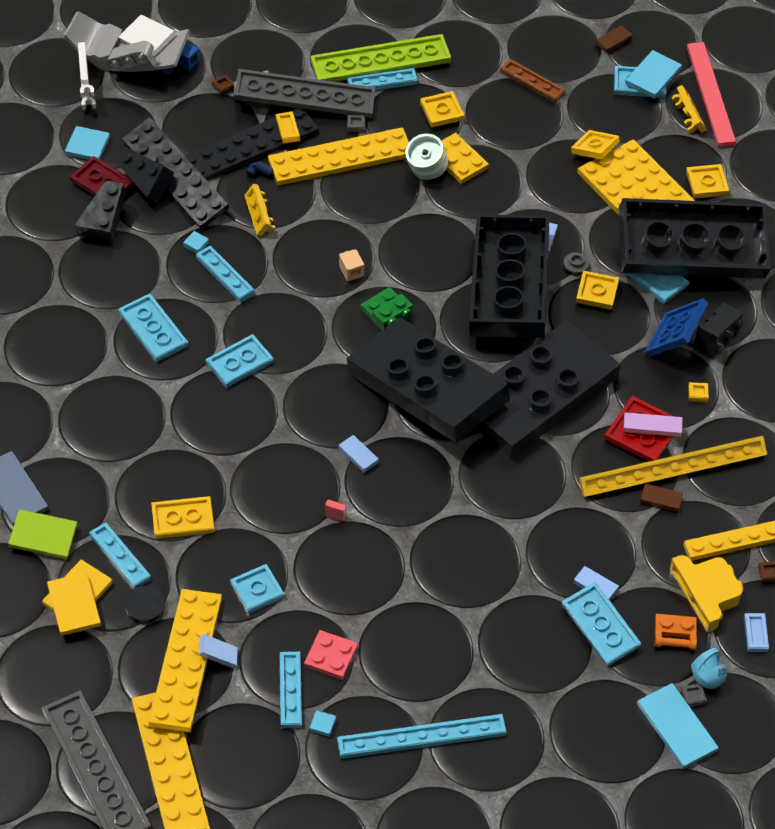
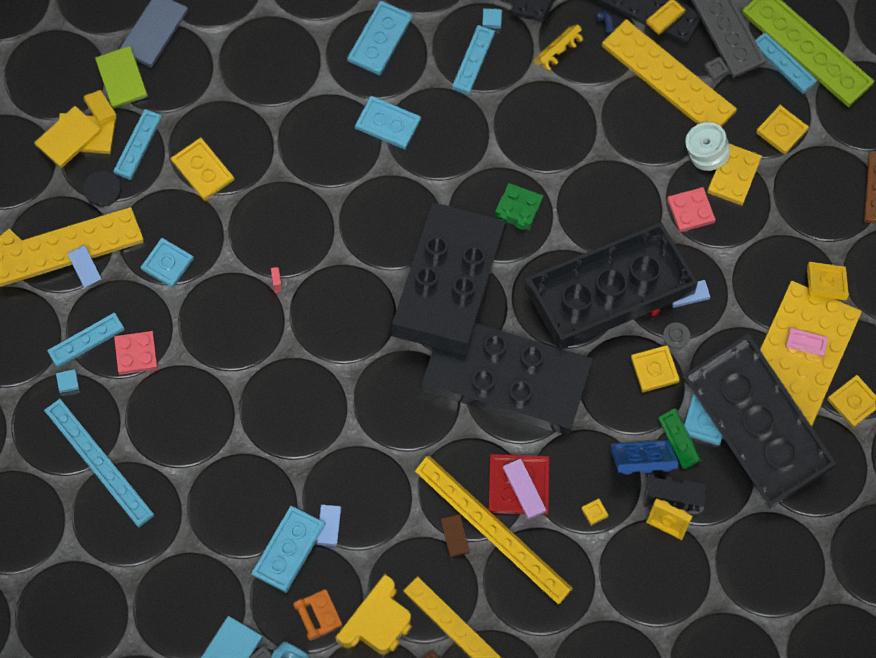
camera: 60 degrees right, 15 degrees up
(61, 565) = (100, 107): none -> yellow tile
(351, 265) = (546, 152): light nougat brick -> none
(358, 453) = (348, 266): light blue tile -> none
(470, 199) = (691, 209): none -> coral plate
(640, 182) = (807, 342): none -> bright pink tile
(664, 302) = (680, 438): none -> green tile
(740, 340) = (669, 519): none -> yellow plate

